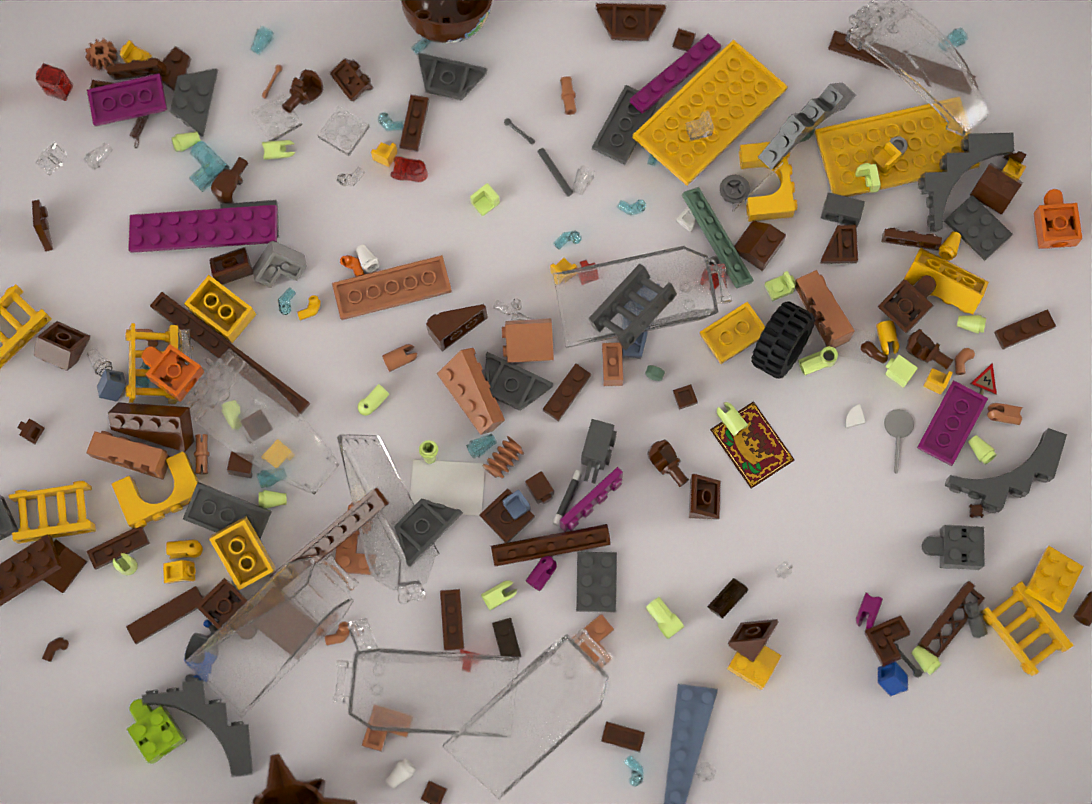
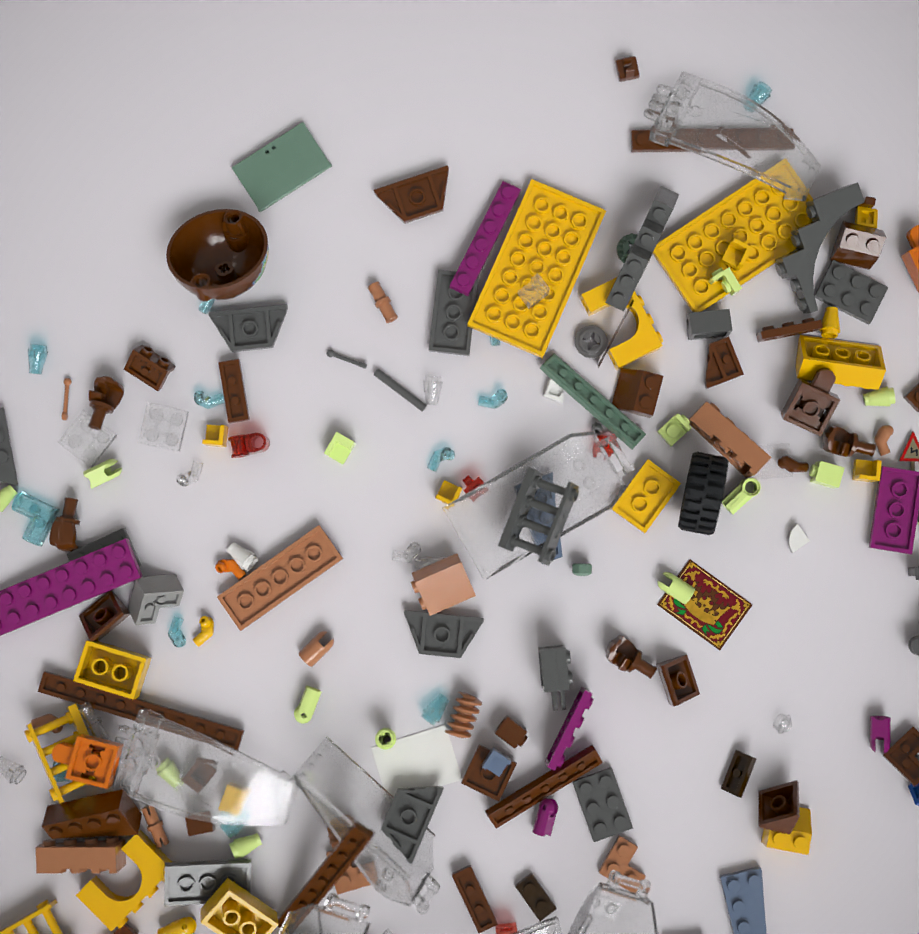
camera: 25 degrees left, 10 degrees up
(111, 385) = (32, 789): sand blue panel -> none
(454, 324) = (356, 601): reddish brown slope -> none
(471, 391) = (405, 660): nougat wedge -> none
(497, 596) = (511, 855): yellowish green piece -> none
(567, 392) = (500, 620): reddish brown plate -> none
(567, 498) = (541, 737): dark grey bar -> none
(612, 364) = (536, 576): nougat panel -> none
(667, 622) = (687, 818): yellowish green piece -> none
(683, 40) = (479, 196): reddish brown tile -> none
(685, 396) = (621, 582): reddish brown plate -> none
(887, 333) = (801, 442): yellow piece -> none
(899, 425) = (843, 529): light grey piece -> none
(900, 143) = (742, 233): light grey tile -> none

